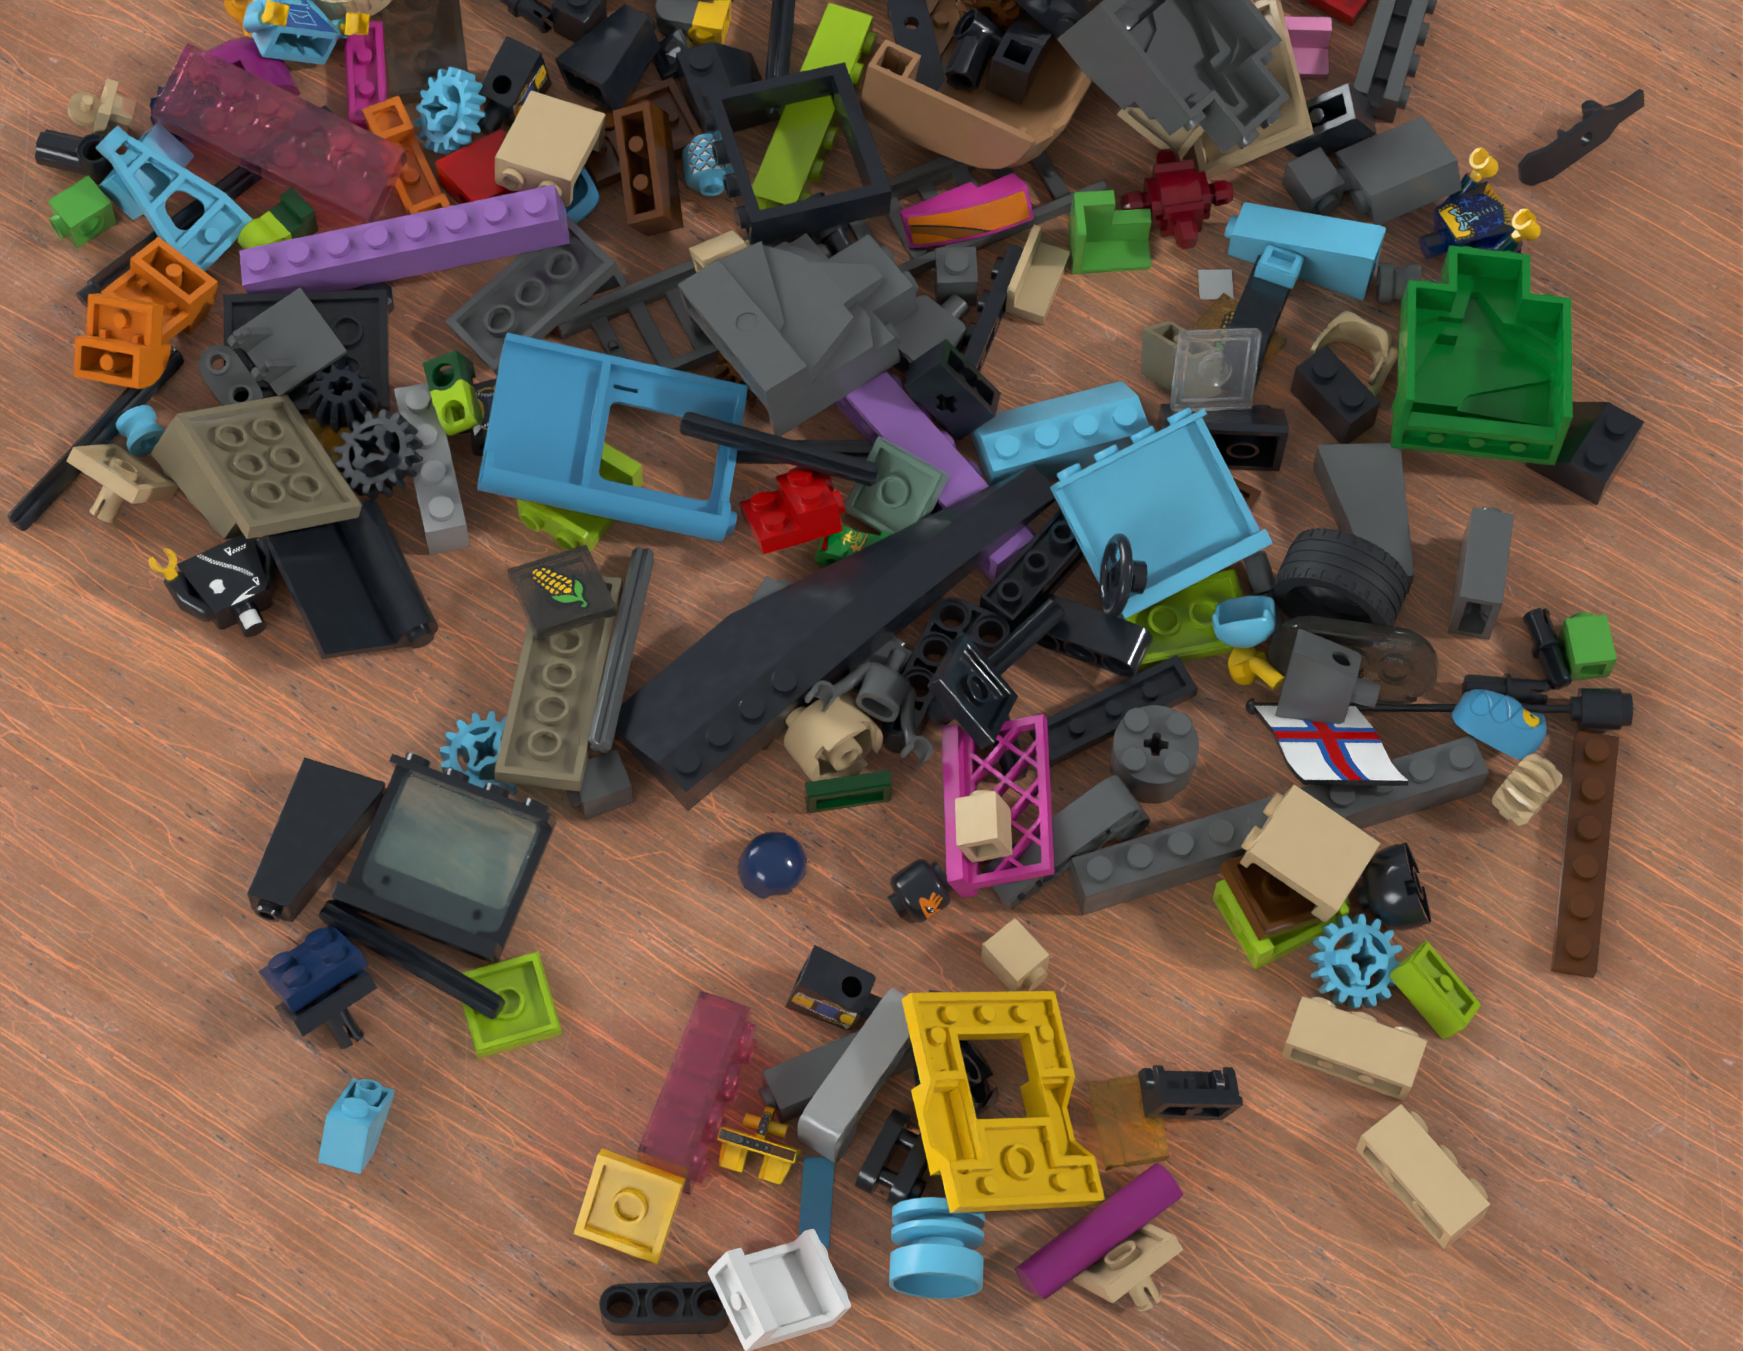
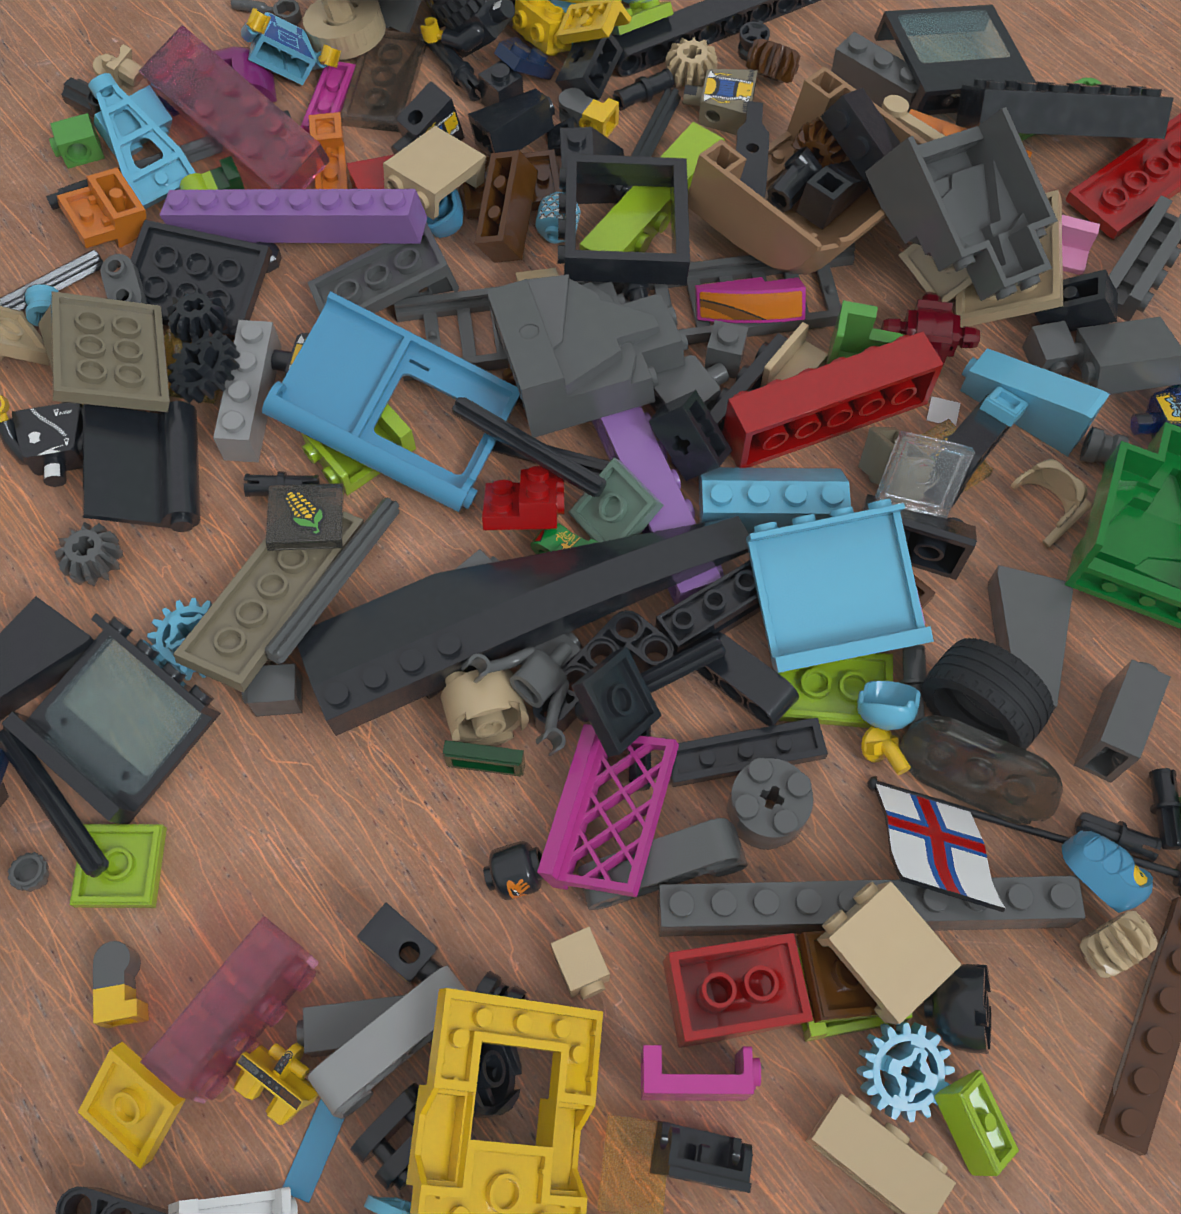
camera: 20 degrees right, 0 degrees up
(121, 342) = (53, 236): orange brick -> none
(288, 343) = (172, 265): dark grey plate -> none
(316, 694) = (89, 554): none -> dark grey gear
(420, 1035) = (29, 872): none -> dark grey piece
(450, 110) = (373, 130): medium azure gear -> none
(453, 392) = (280, 333): leg -> none
(496, 569) = (259, 484): none -> black pin
(560, 1114) = (115, 986): none -> leg
(772, 864) = (396, 805): dark blue hair -> none
(983, 826) = (585, 830): tan brick -> none
(1091, 307) = (831, 400): none -> red brick
(1121, 577) = (784, 633): black piece -> none
(1162, 1030) = (698, 1086): none -> dark pink panel
(1173, 935) = (736, 989): none -> red slope
(1323, 681) = (946, 782): dark grey torso -> none
(1335, 396) = (1024, 527): black brick -> none

